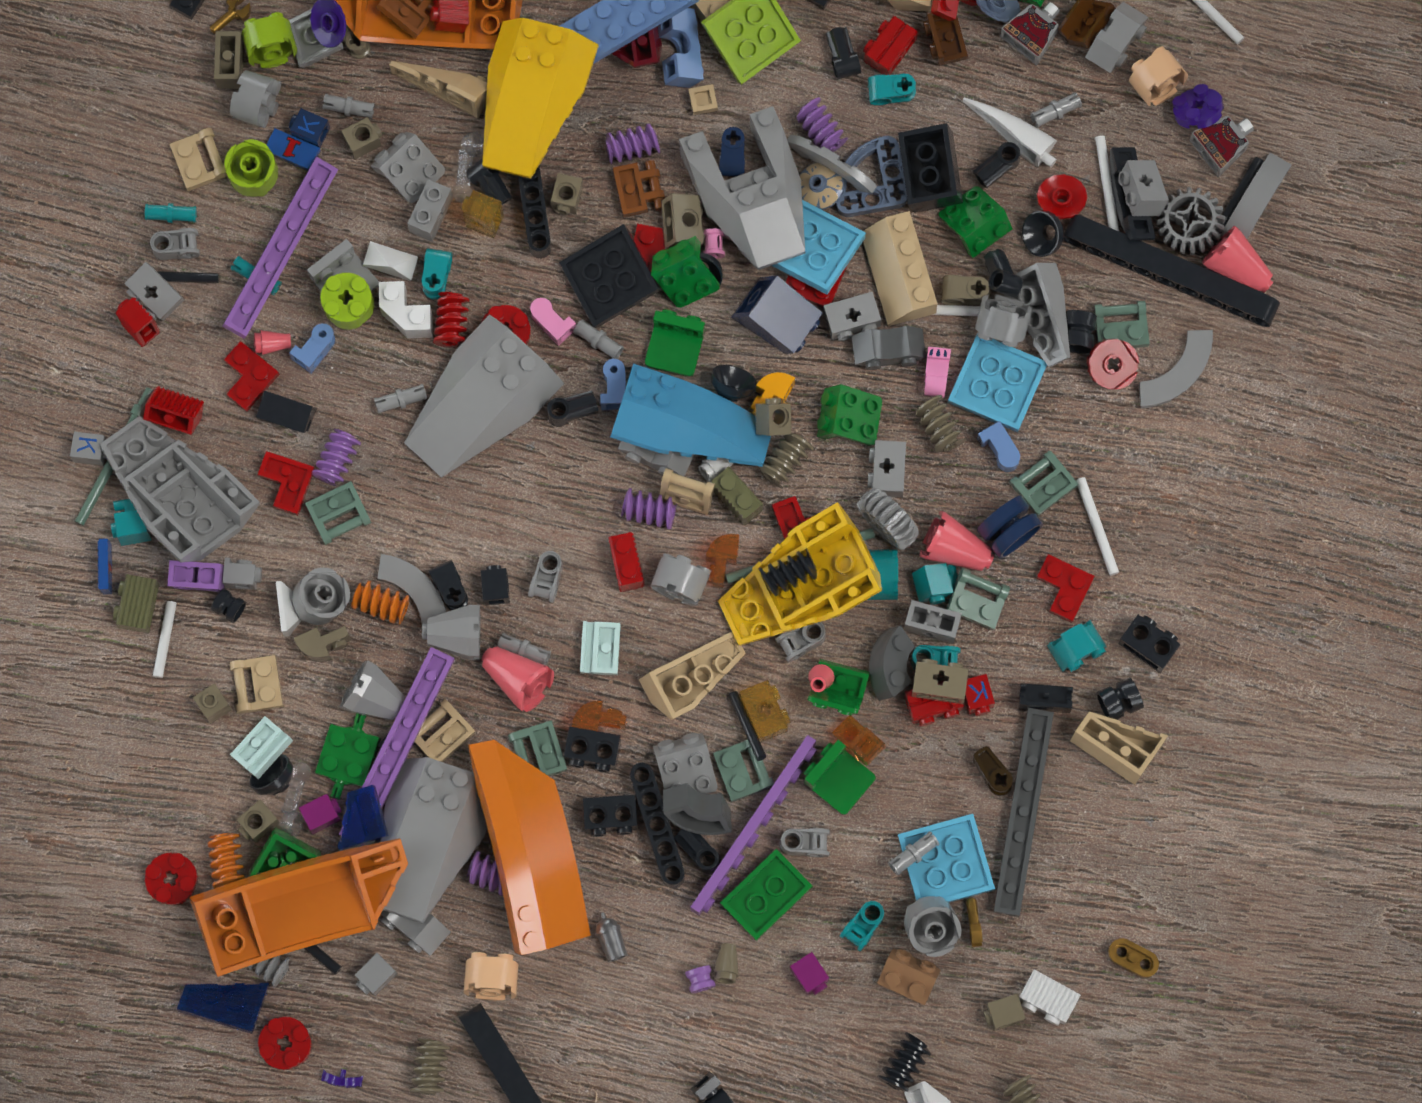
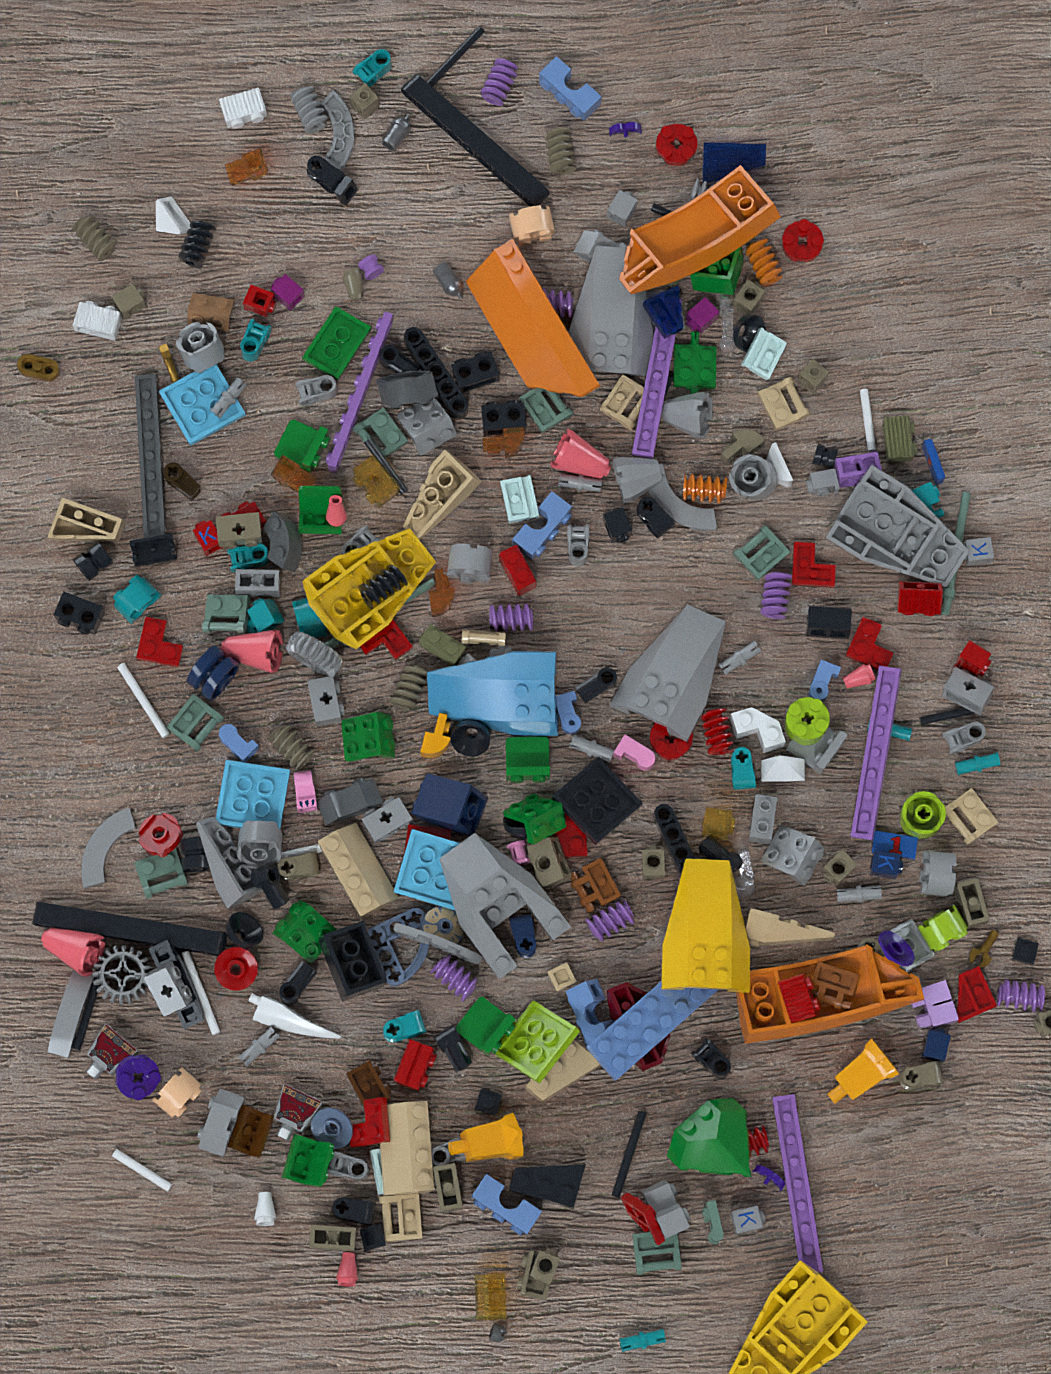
camera: 160 degrees right, 0 degrees up
(598, 591) = (533, 541): none -> medium blue arch
(782, 421) = (428, 710): dark tan brick -> none
(799, 66) = (486, 1026): none -> green bracket
(856, 974) = (258, 295): none -> red brick

